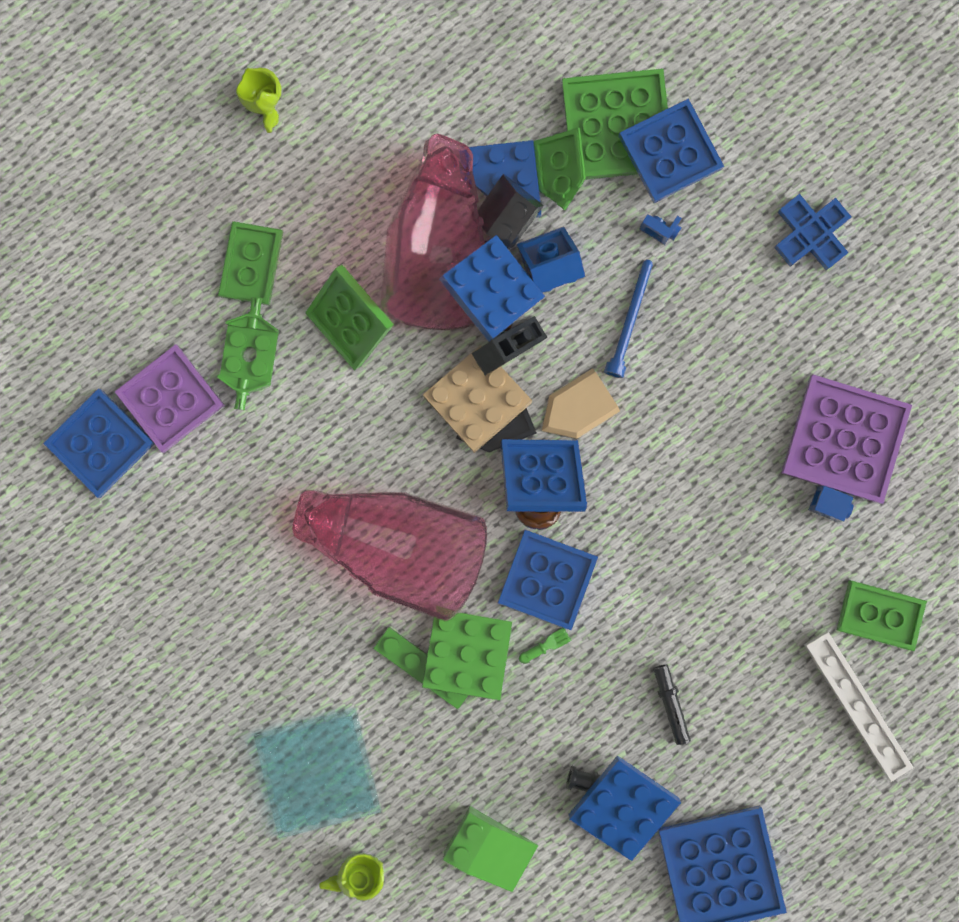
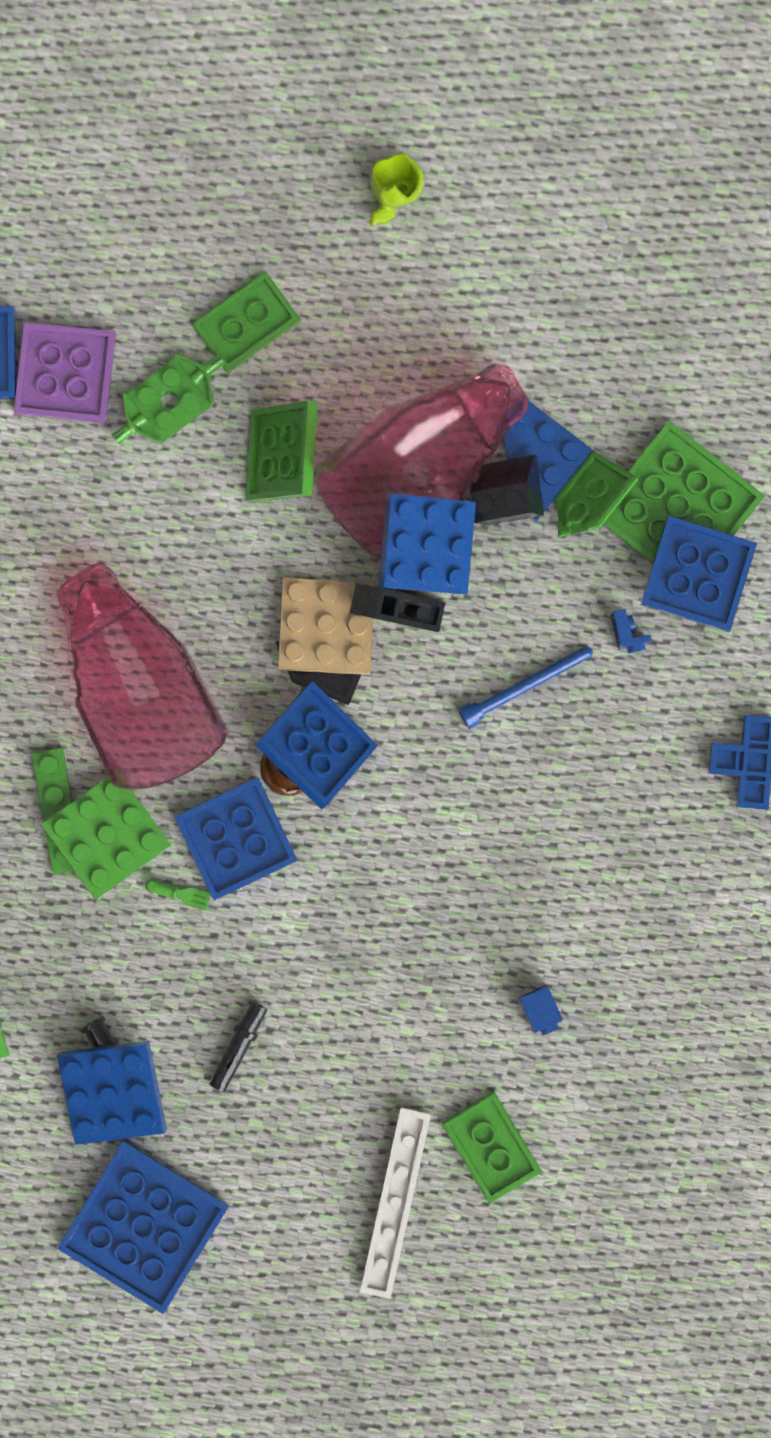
camera: 35 degrees right, 0 degrees up
(551, 259) = (505, 568): blue slope -> none
(579, 406) = (407, 717): tan tile -> none
(846, 439) = (609, 967): medium lavender plate -> none

